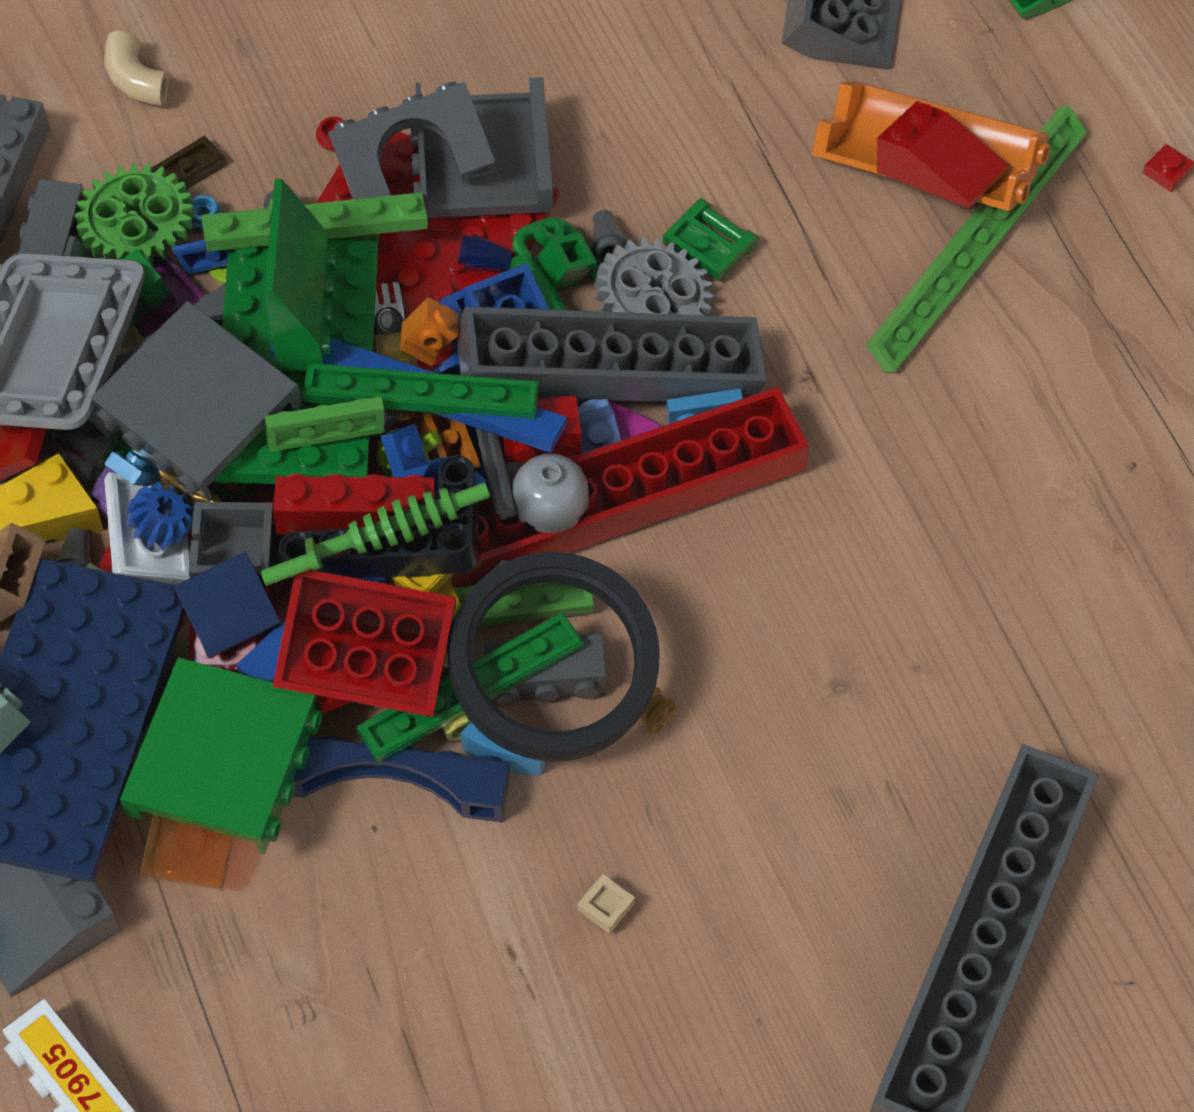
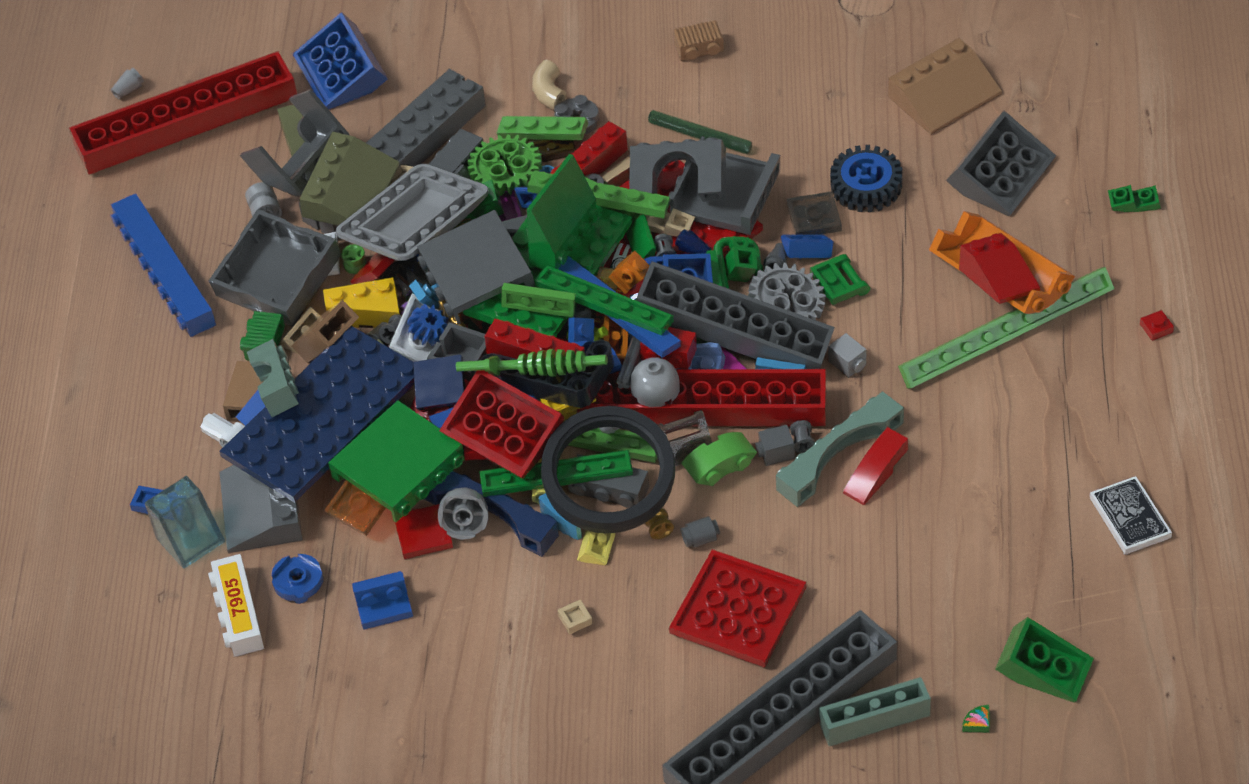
camera: 30 degrees right, 10 degrees down
(96, 542) = (387, 330): none -> dark grey bush
(134, 981) = (298, 590): none -> blue plate
(160, 139) = (543, 127): none -> bright green plate
(198, 88) = (581, 107): none -> flat silver plate
(259, 158) = (600, 149): none -> red brick
(298, 985) = (382, 600): none -> blue bracket
(307, 850) = (421, 533): none -> red tile
(311, 170) = (618, 173): none -> tan slope
(360, 800) = (463, 513): none -> light grey cylinder
(391, 74) = (697, 131): none -> clear green axle
(406, 272) = (641, 238): none -> green slope
(444, 231) = (671, 224): none -> tan slope
(445, 274) = (665, 249): none -> dark grey bush
(576, 780) = (596, 547): none -> light yellow slope
(624, 152) = (814, 214): none -> clear smoke plate
(640, 202) = (807, 246): none -> blue slope
(640, 565) = (686, 444): none -> clear smoke plate
(671, 55) = (863, 188): none -> black wheel
(698, 565) = (726, 455): none -> bright green brick
(719, 700) = (700, 532): none -> dark grey brick
(756, 525) = (775, 445): none -> dark grey brick
(786, 499) = (802, 436): none -> dark grey bush
(787, 351) = (847, 355): none -> light grey brick
(820, 560) = (800, 478): none -> sand green arch
(833, 800) = (738, 608): none -> red plate
(913, 508) = (876, 466): none -> red slope
(1114, 891) = (875, 711): none -> sand green brick

